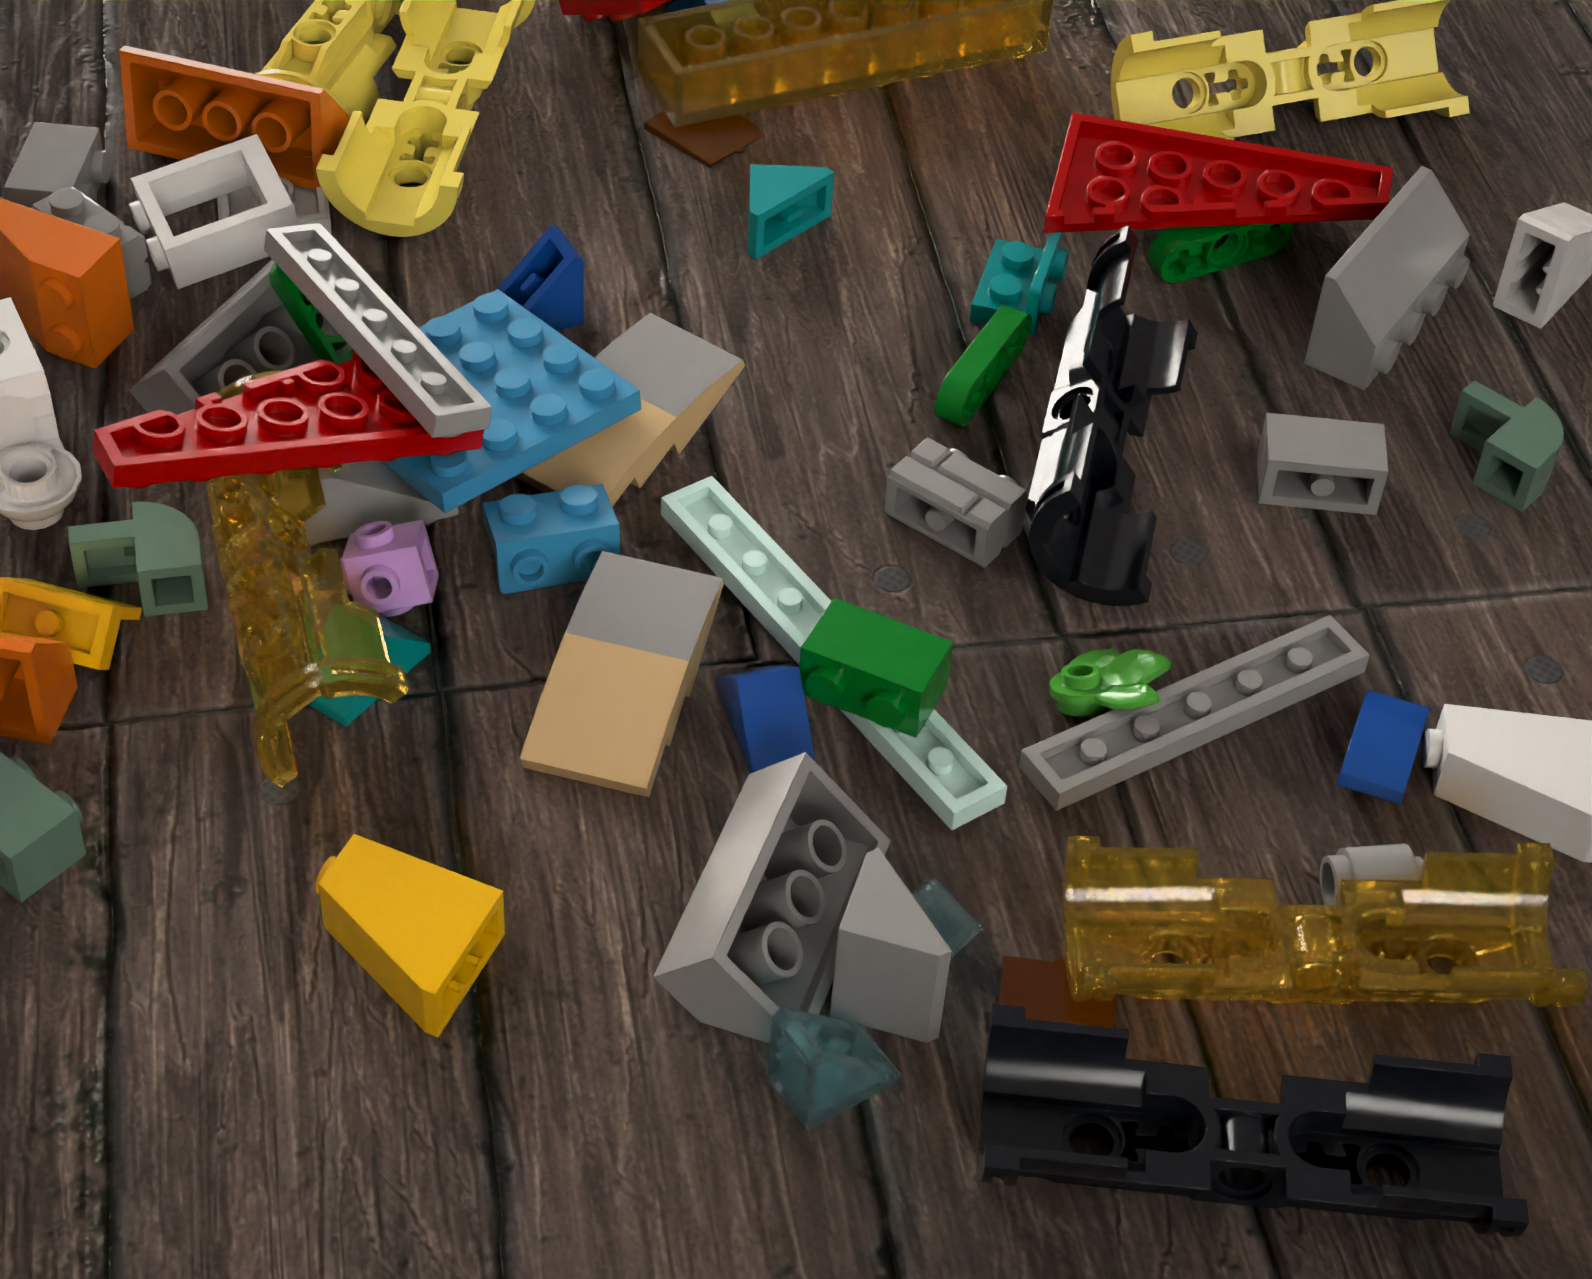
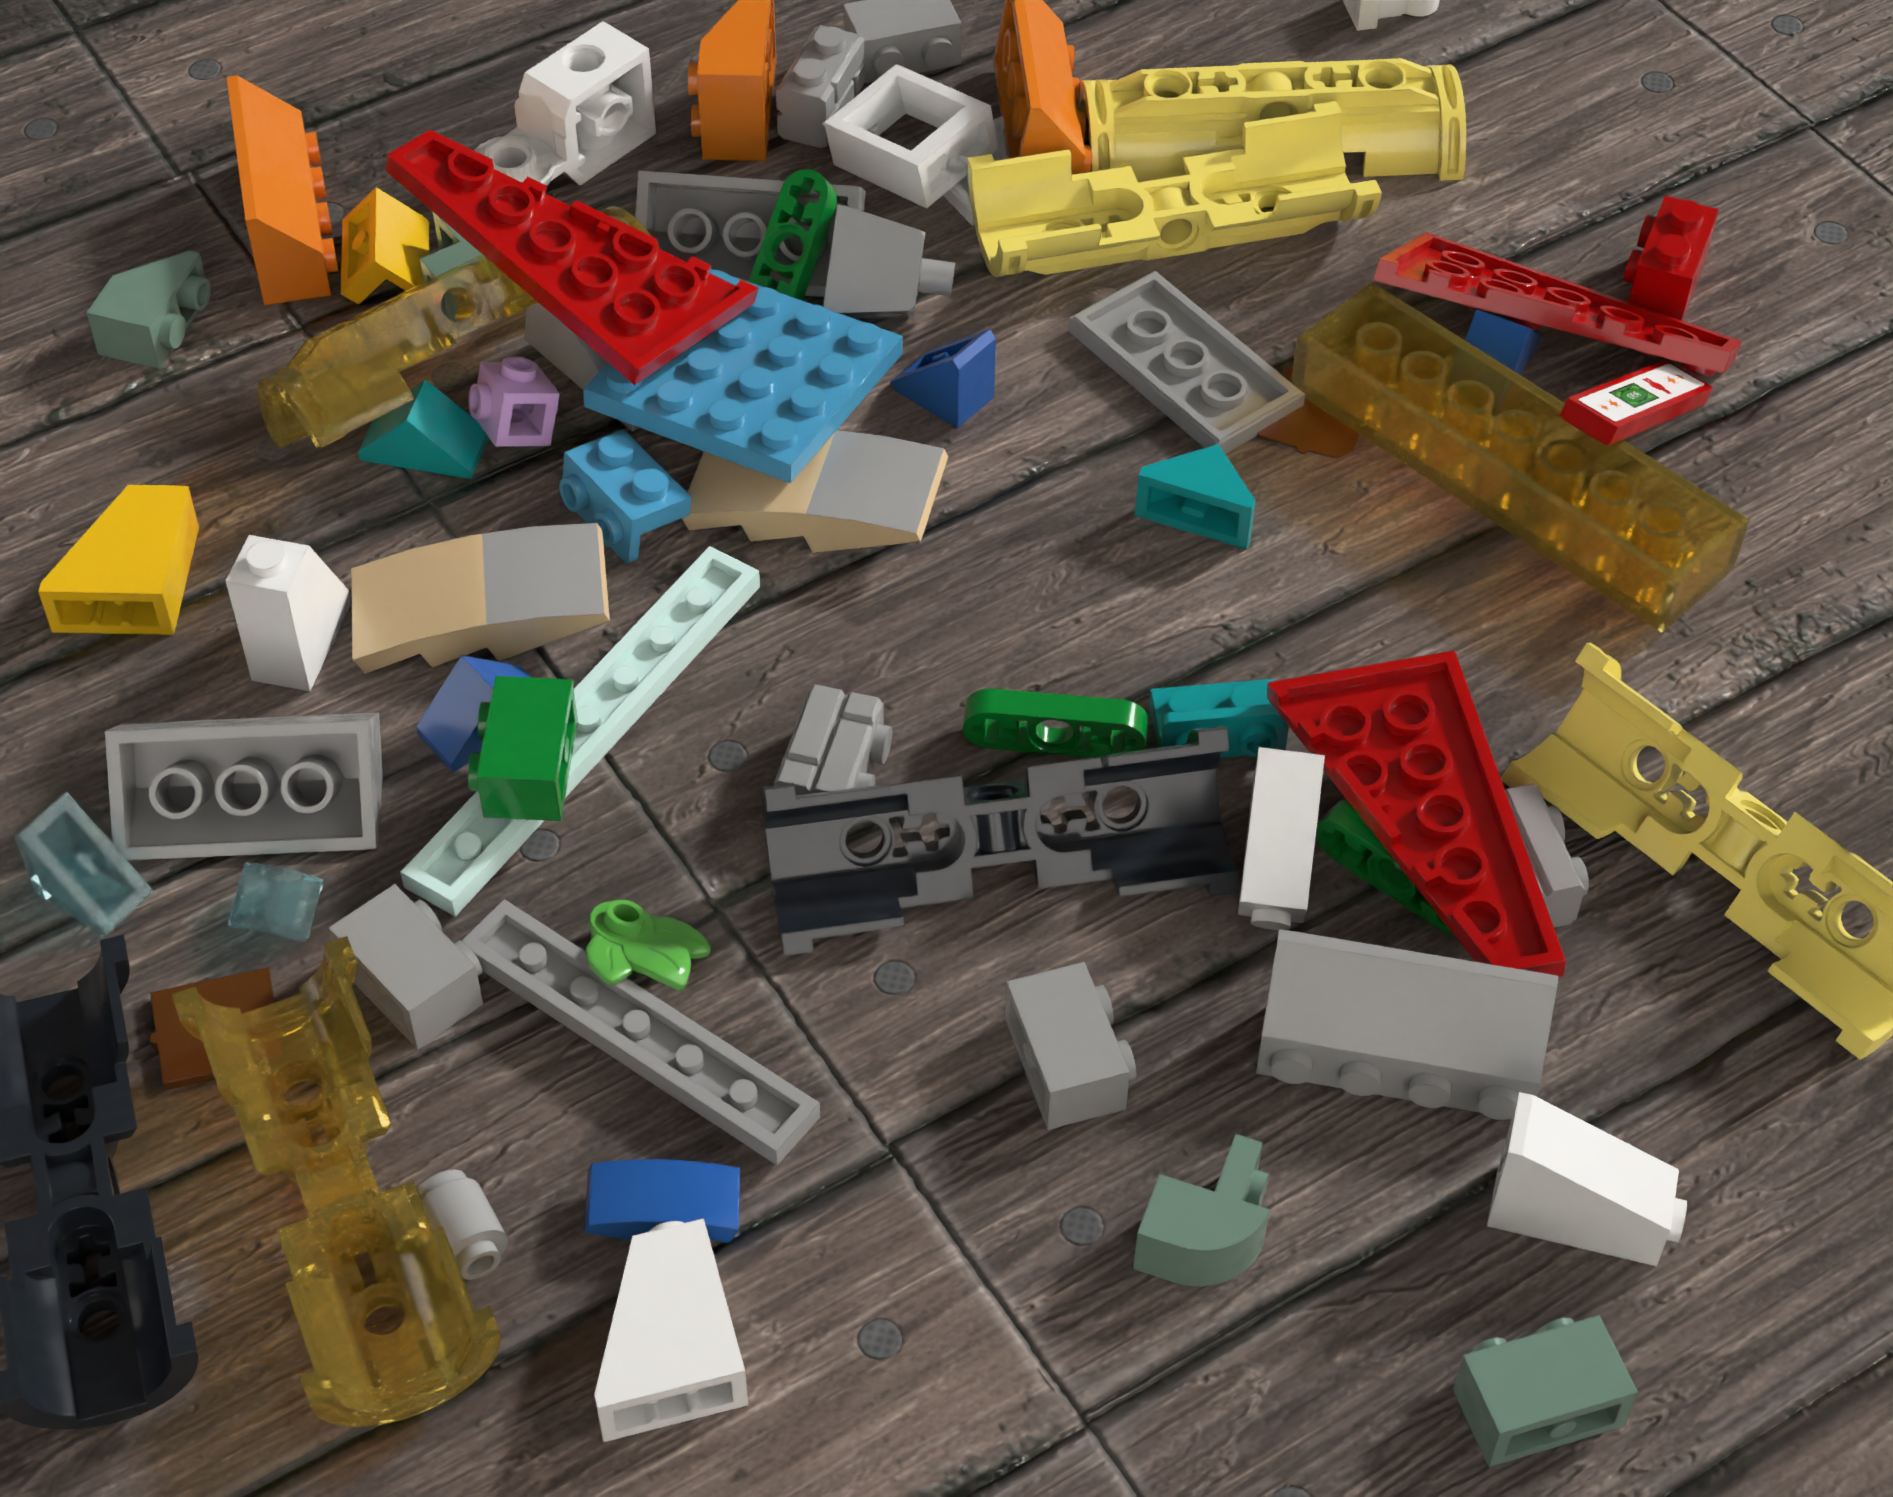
camera: 70 degrees right, 5 degrees up
(378, 330) = (705, 254): light grey plate -> none
(405, 267) = (880, 267): none -> light grey torso
(589, 797) = (285, 610): none -> white slope
(603, 170) = (1185, 363): none -> light grey tile
(889, 958) = (190, 855): light grey slope -> none
(1031, 833) = (411, 965): none -> light grey brick
(1185, 278) = (1280, 837): none -> white slope

